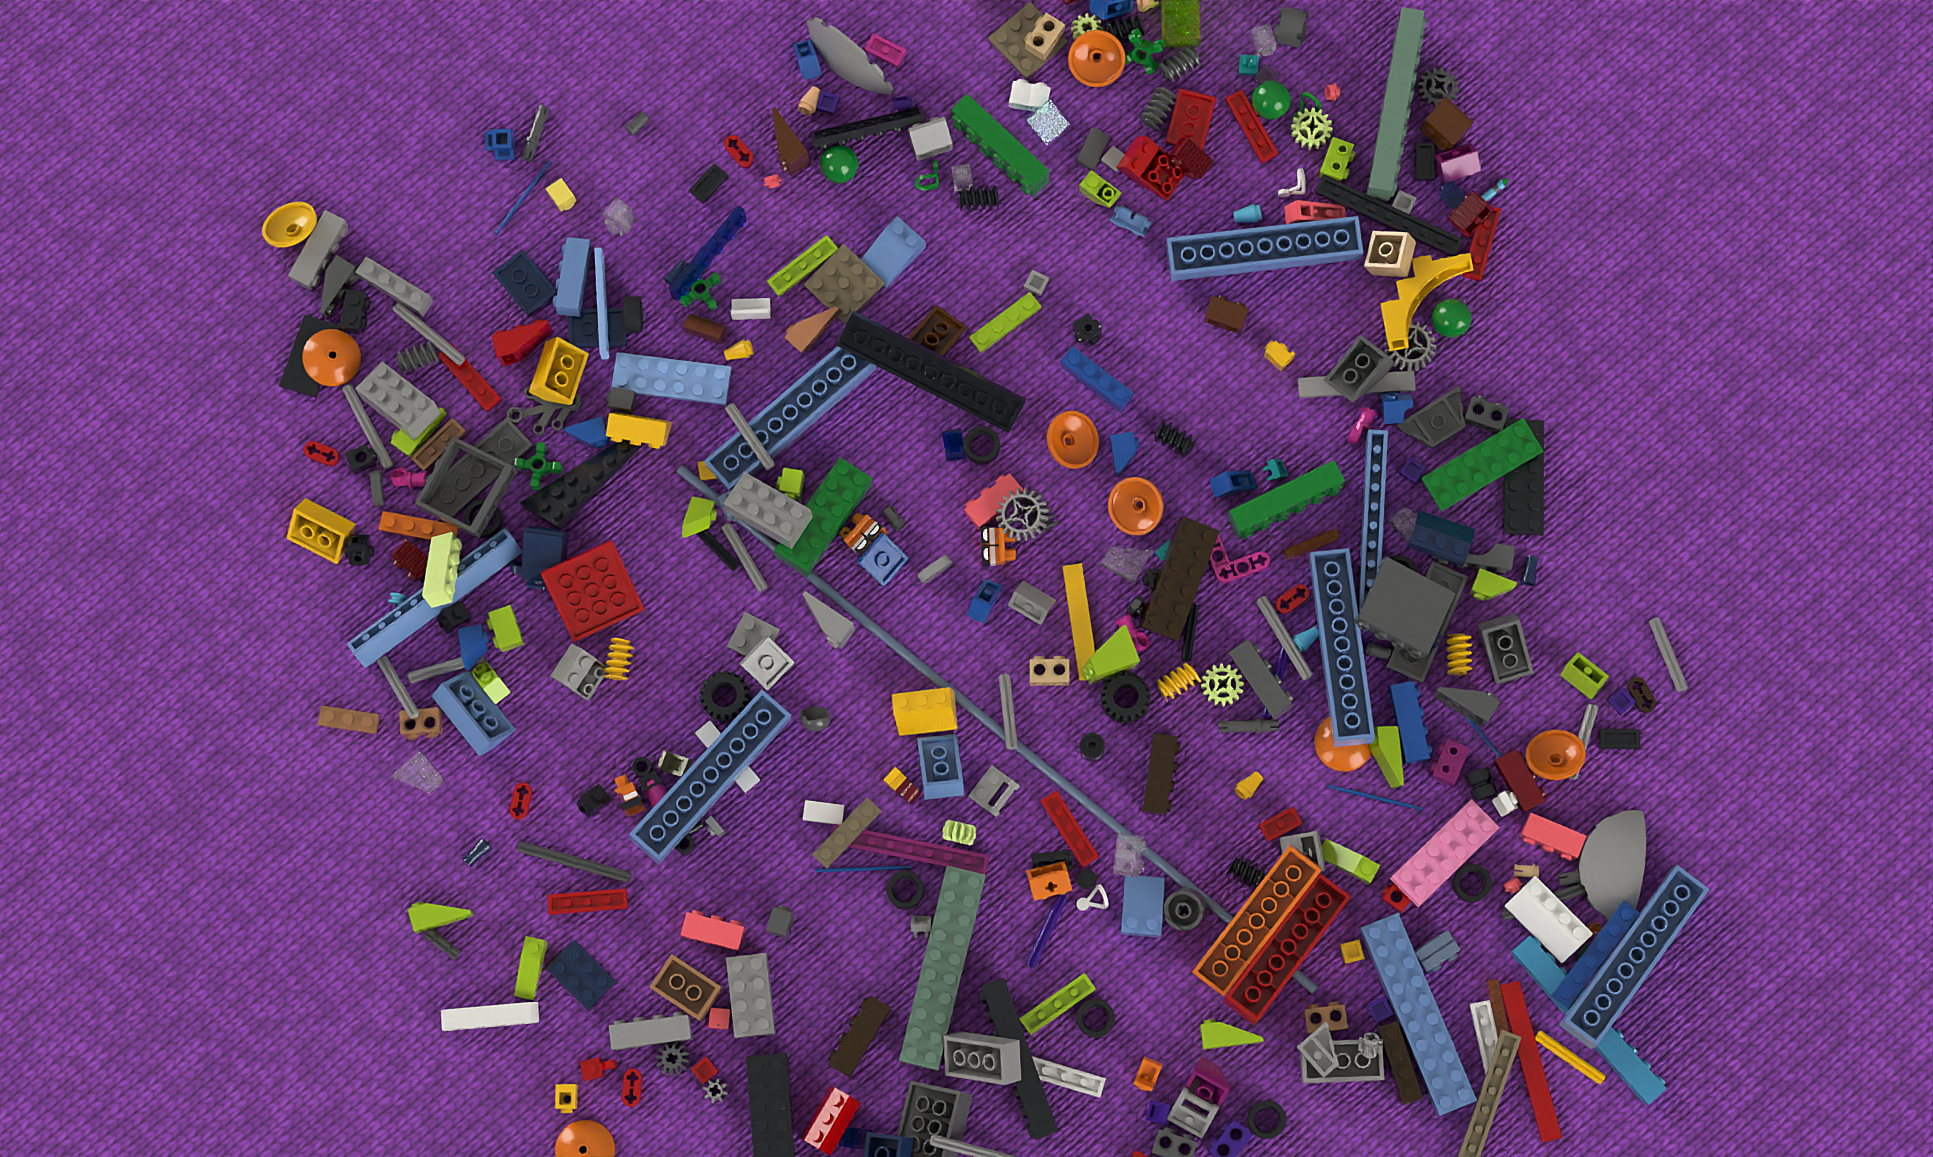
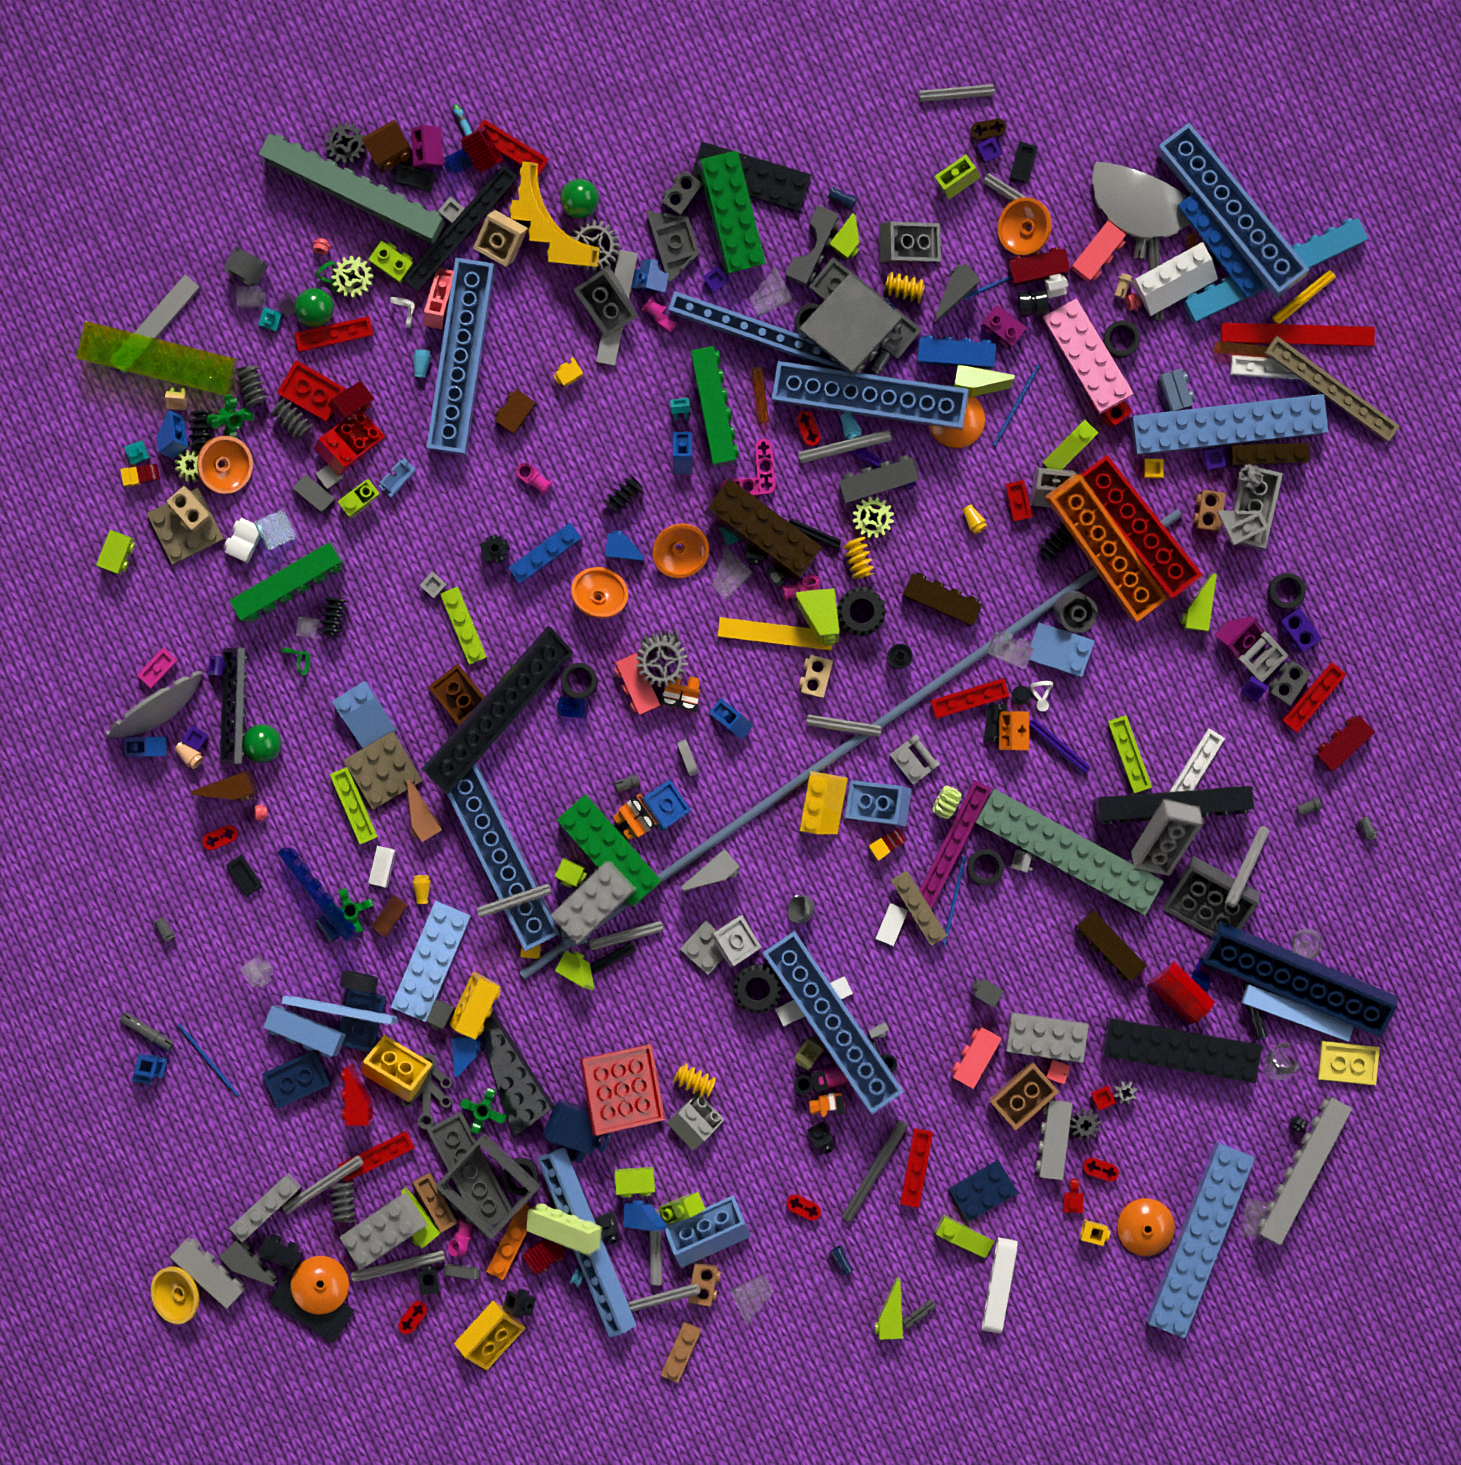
camera: 80 degrees left, 10 degrees up
(561, 195) = (217, 1021): light yellow brick -> none
(930, 138) = (261, 648): light grey slope -> none
(1031, 602) = (744, 674): light grey panel -> none
(1110, 1020) = (1166, 720): black tyre -> none
(1147, 1074) = (1217, 689): orange bracket -> none
(1166, 350) = (534, 479): none -> dark pink connector
(1249, 726) = (918, 503): dark grey pin -> none
(1441, 538) = (791, 271): dark blue slope -> none

